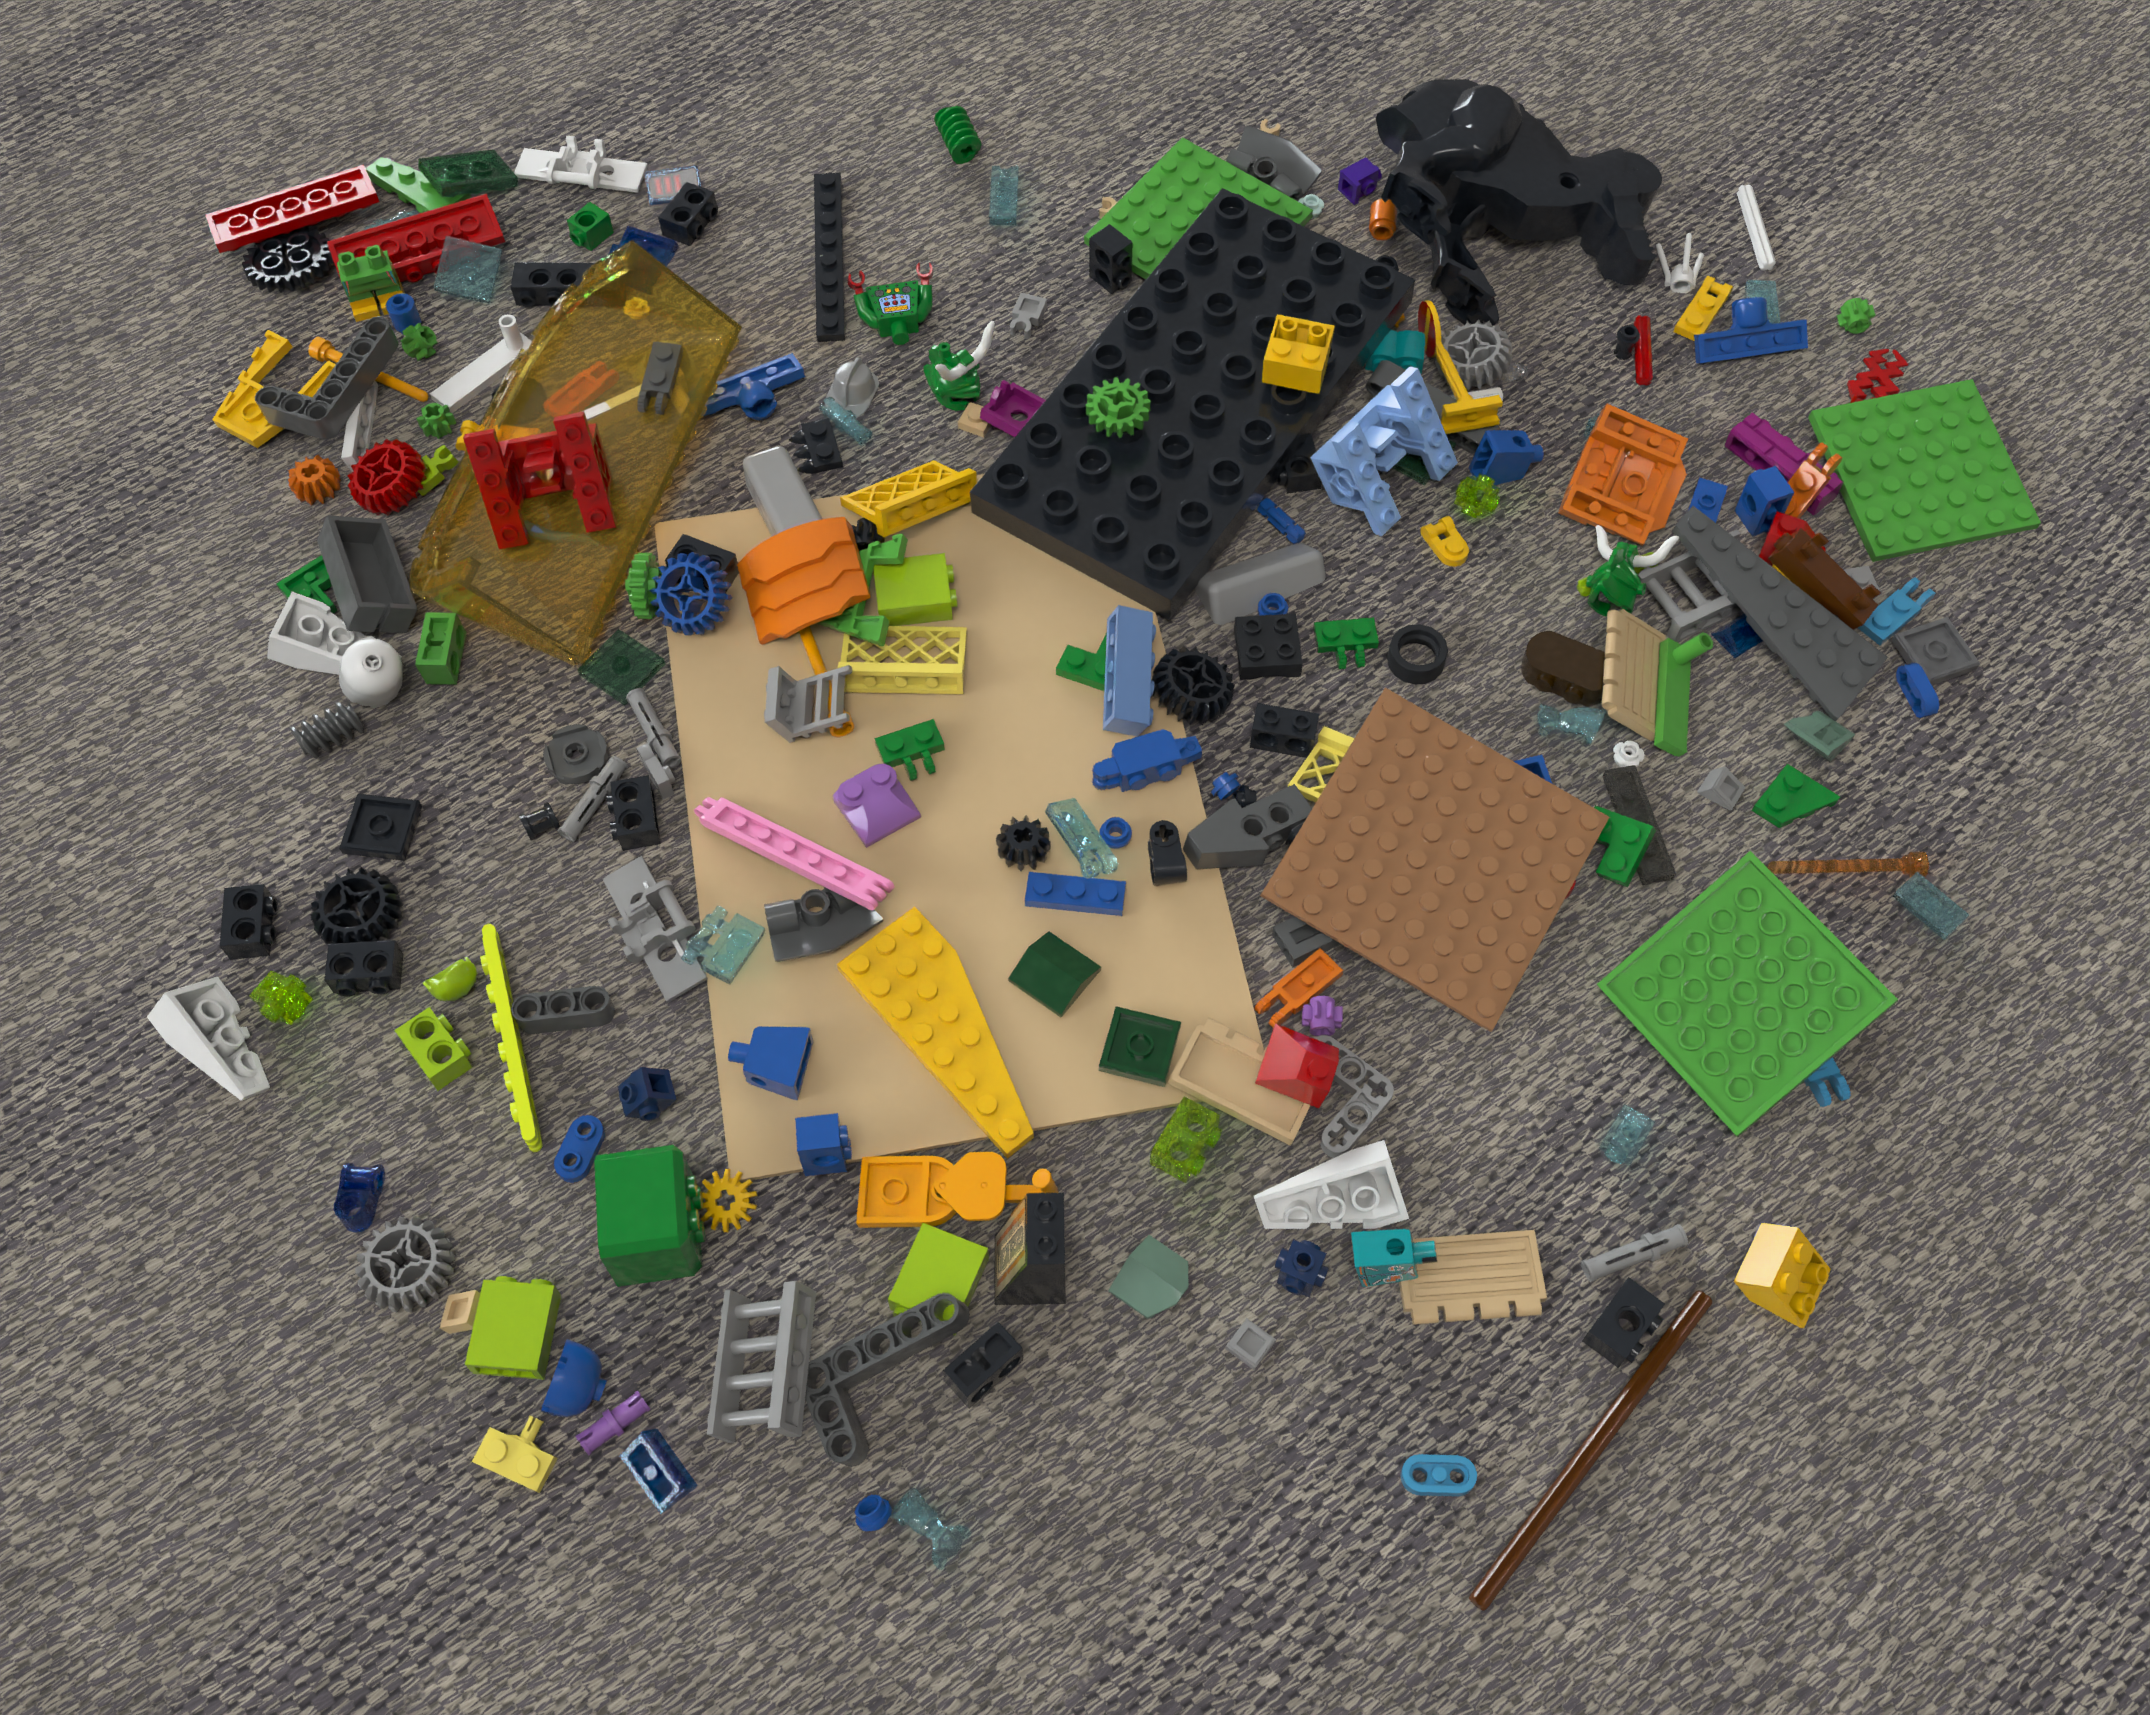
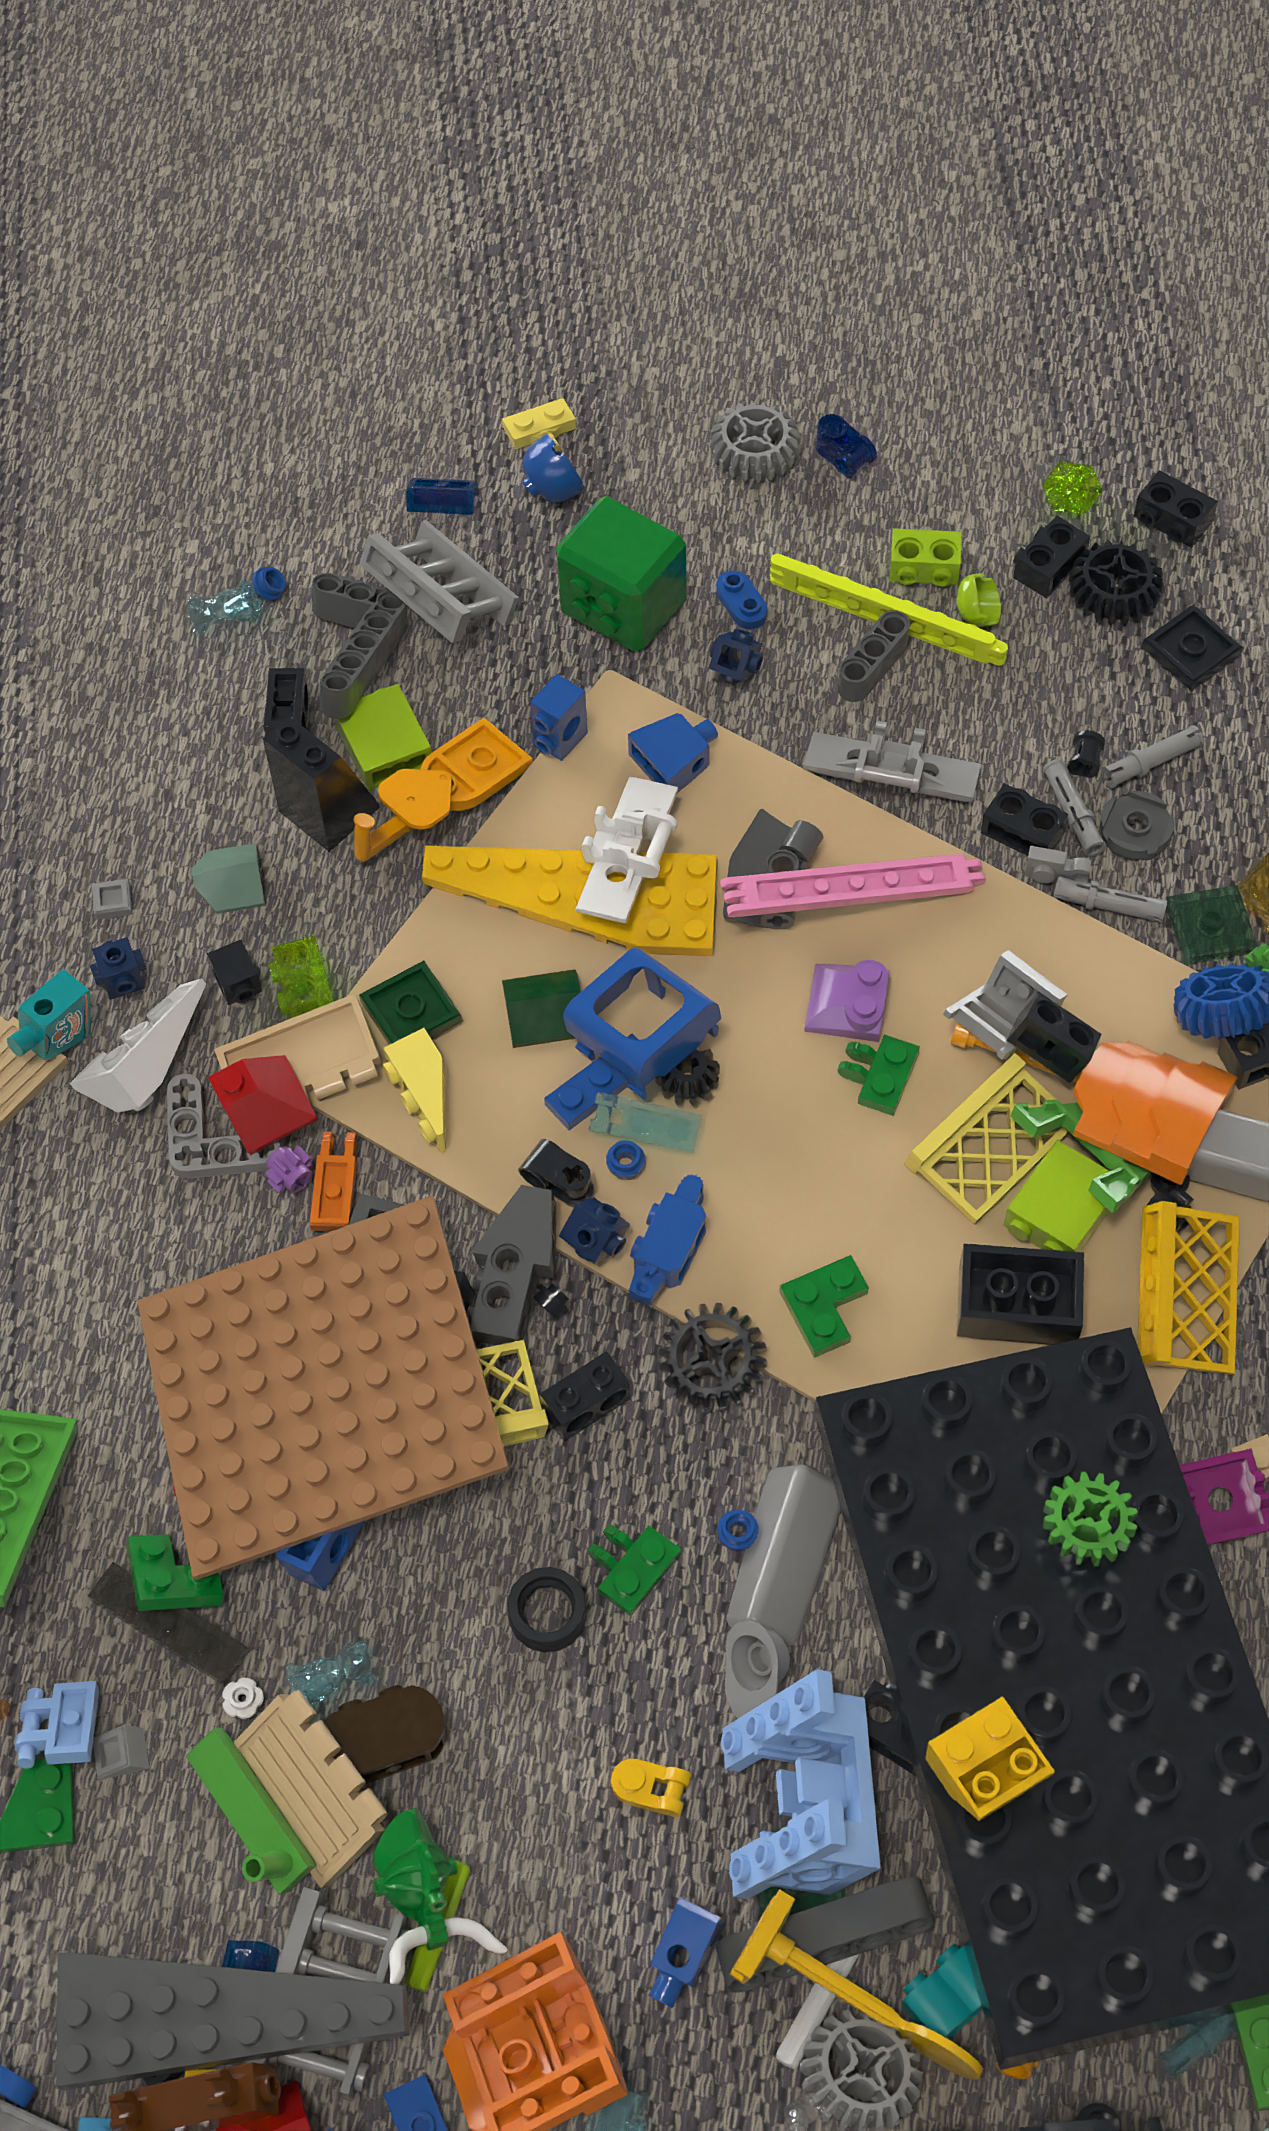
camera: 135 degrees right, 0 degrees up
(204, 1029) = (1085, 434): white wedge -> none
(460, 1312) = (680, 452): tan plate -> none
(513, 1328) = (633, 470): lime brick -> none
(518, 787) = (1139, 762): none -> light grey pin
(612, 1423) = (502, 488): medium lavender pin -> none
(731, 949) = (808, 793): clear light blue plate -> none
(737, 1208) = (579, 658): yellow gear -> none
(806, 656) = (1054, 1037): none -> black brick
(894, 1016) = (615, 848): none -> white piece
(999, 562) = (1020, 1294): none -> black brick
(1019, 916) = (660, 1051): none -> blue piece
(1128, 671) = (776, 1297): medium blue brick -> none
(1184, 799) = (595, 1230): none -> dark blue brick
(1184, 984) = (421, 1076): none -> light yellow slope
(1224, 1189) = (235, 973): none -> black brick
(1225, 785) = (583, 1298): blue plate -> none
(1268, 646) = (695, 1477): black brick -> none
(1281, 521) = (836, 1641): blue axle -> none
(1341, 534) = (754, 1665): none -> light grey piece
(1468, 499) = (667, 1862): clear neon green brick -> none
(1743, 813) = (70, 1725): none -> light blue plate
(1821, 734) = (64, 1908): sand green slope -> none

